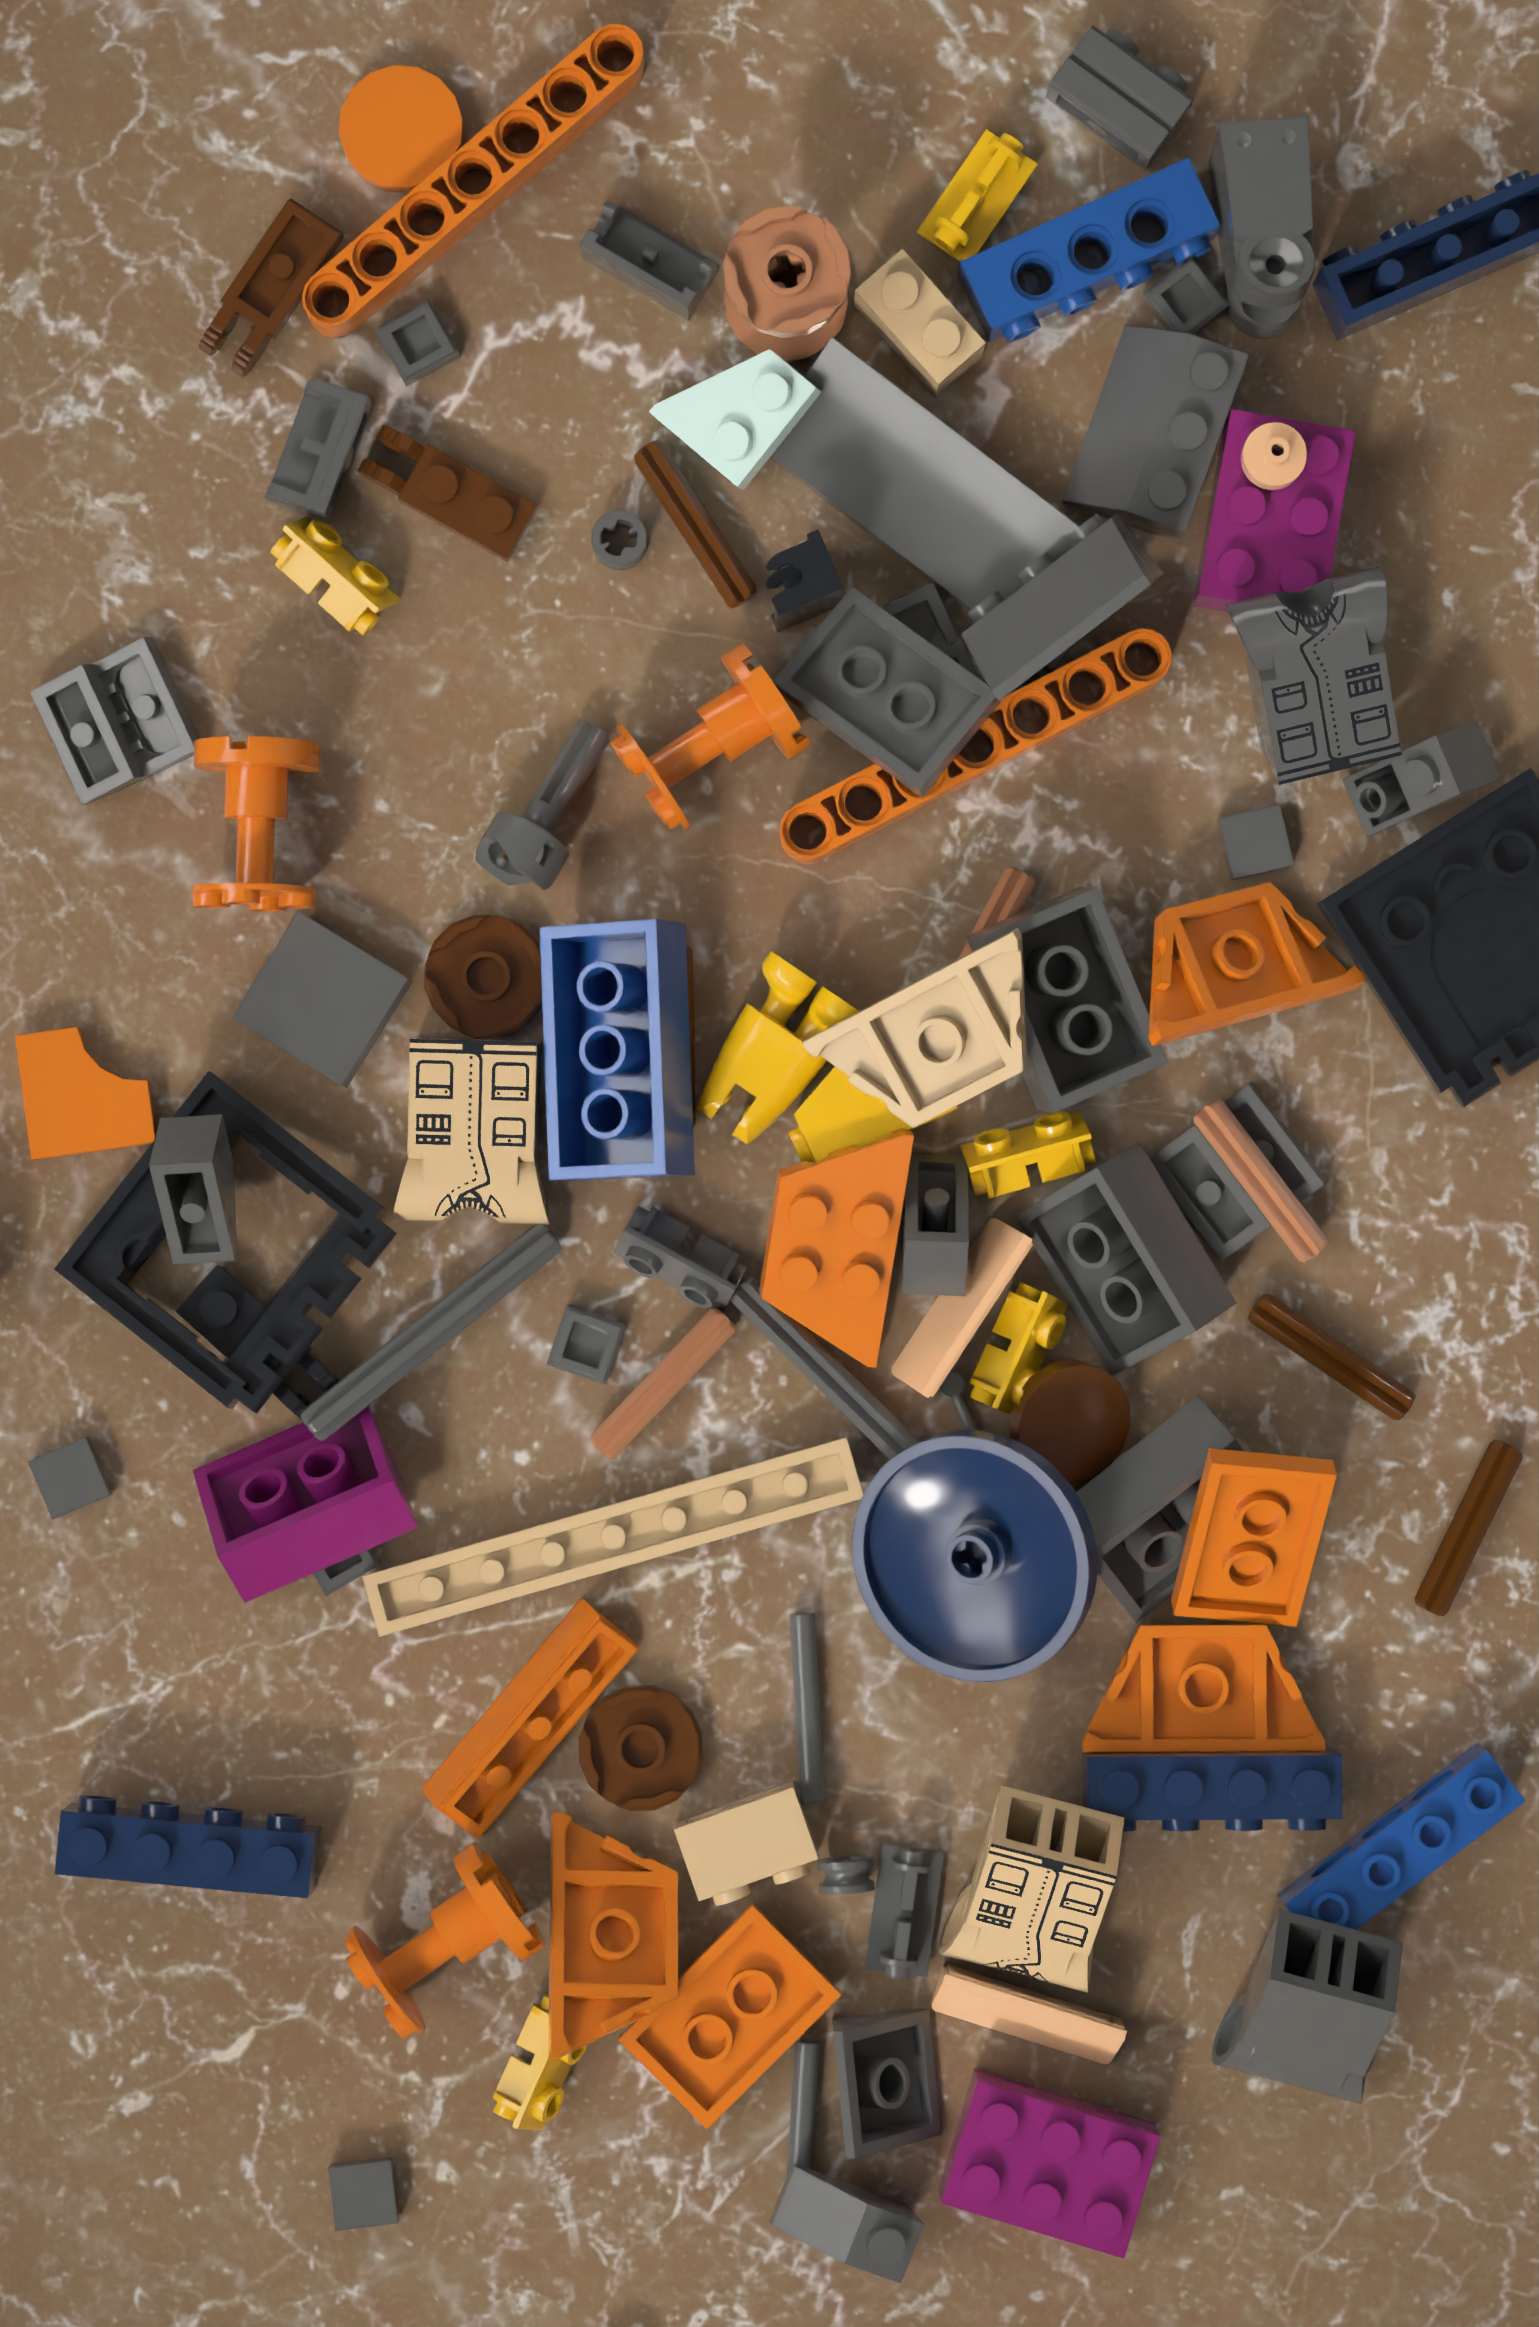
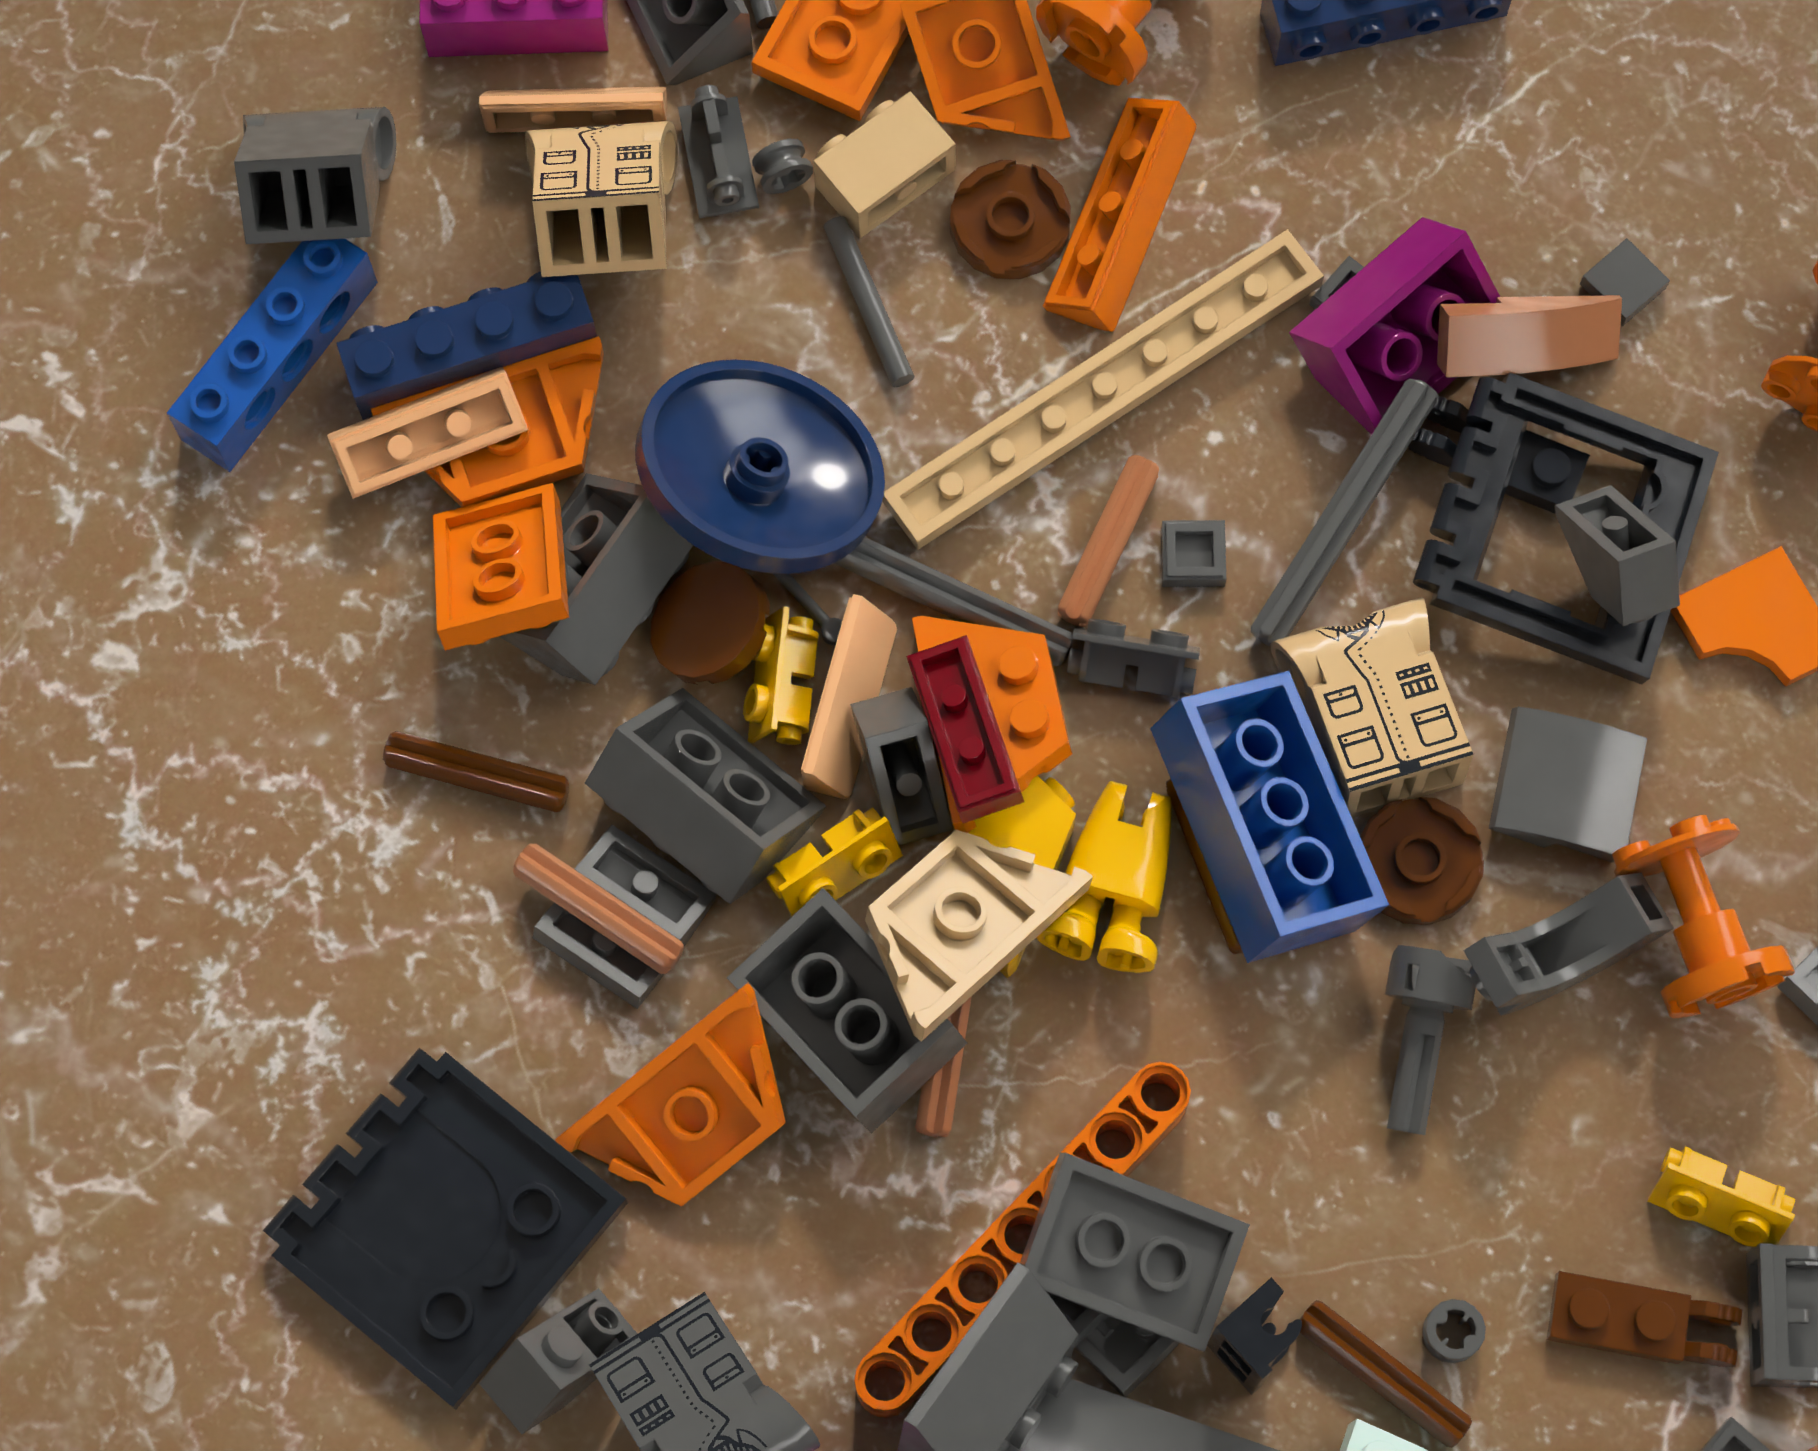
camera: 165 degrees right, 15 degrees down
(191, 1445) = (1528, 334): none -> nougat slope
(390, 841) = (1568, 946): none -> dark grey arch
(729, 726) = (1278, 1165): orange piece -> none
(872, 1221) = (965, 729): none -> dark red tile
(1255, 842) = (708, 1243): dark grey tile -> none
(1279, 1706) = (427, 432): none -> light nougat slope
(1468, 1527) = (294, 657): reddish brown axle -> none

